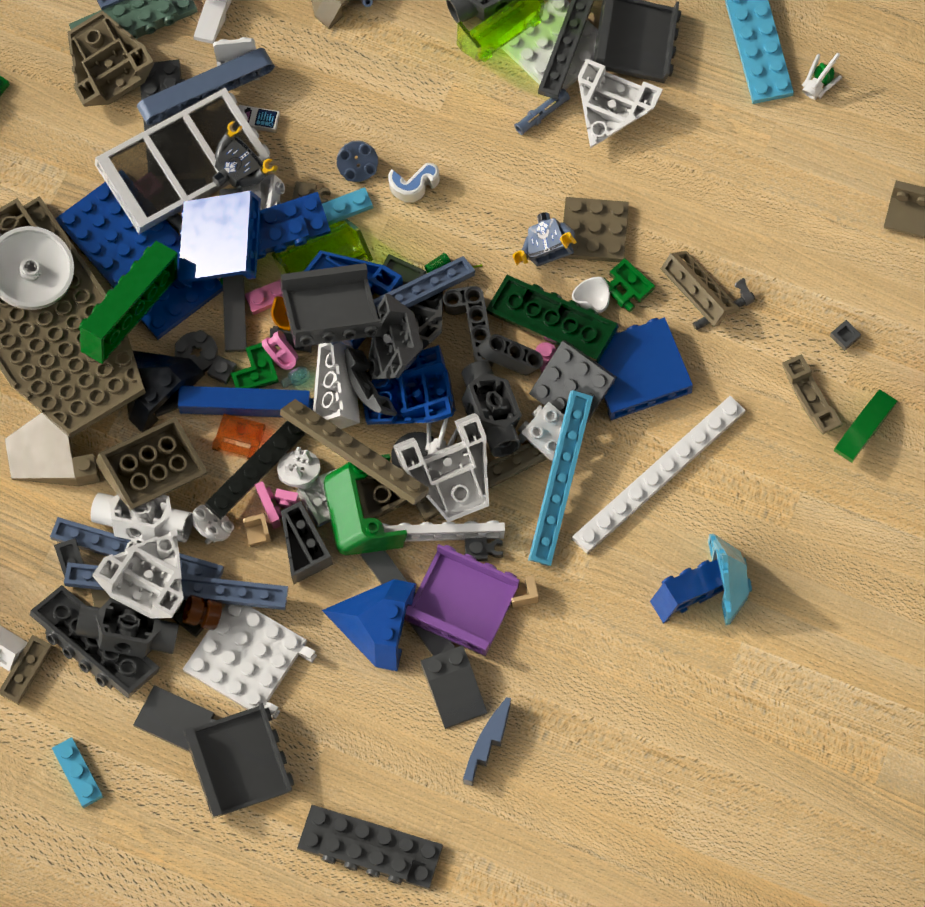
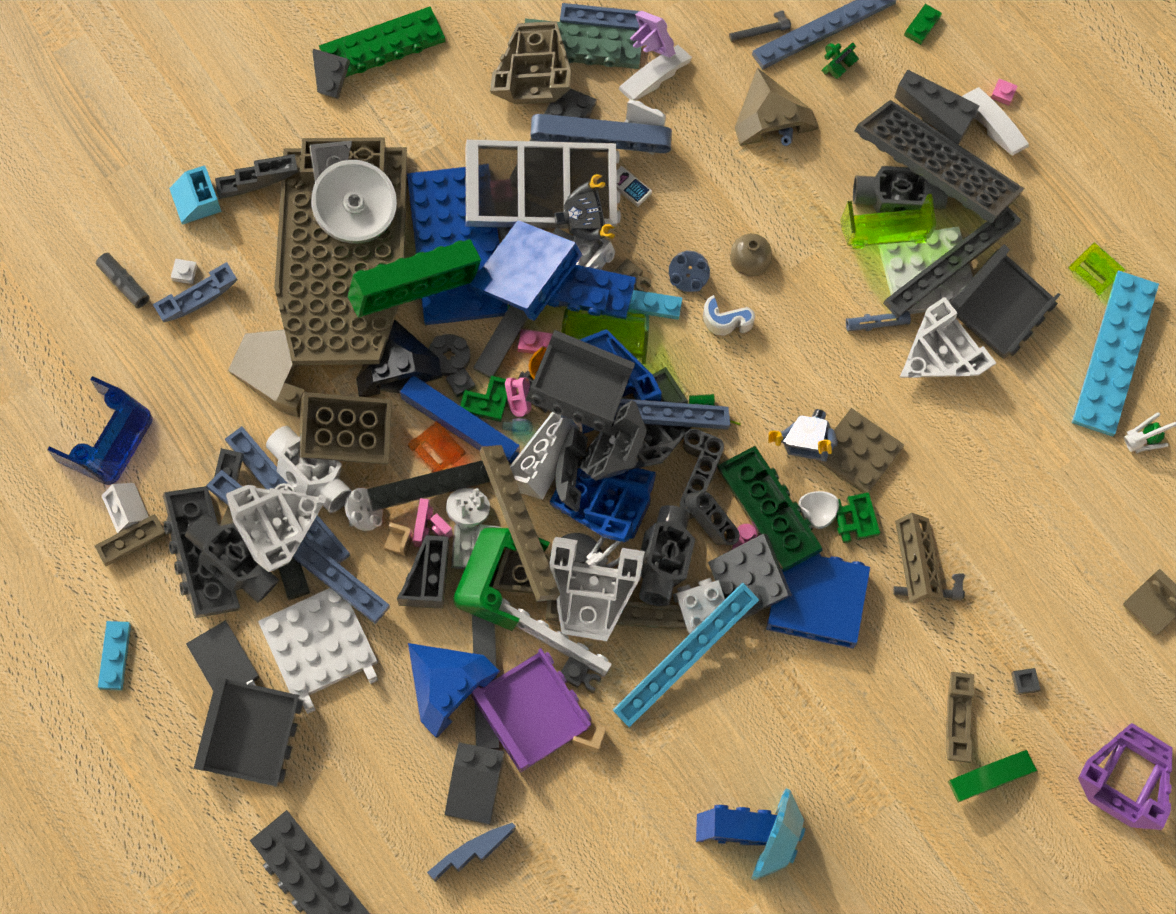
camera: 25 degrees right, 0 degrees up
(202, 612) = (302, 582): reddish brown wheel -> none
(399, 117) = (751, 254): none -> dark tan cylinder
(658, 475) = (777, 704): white plate -> none

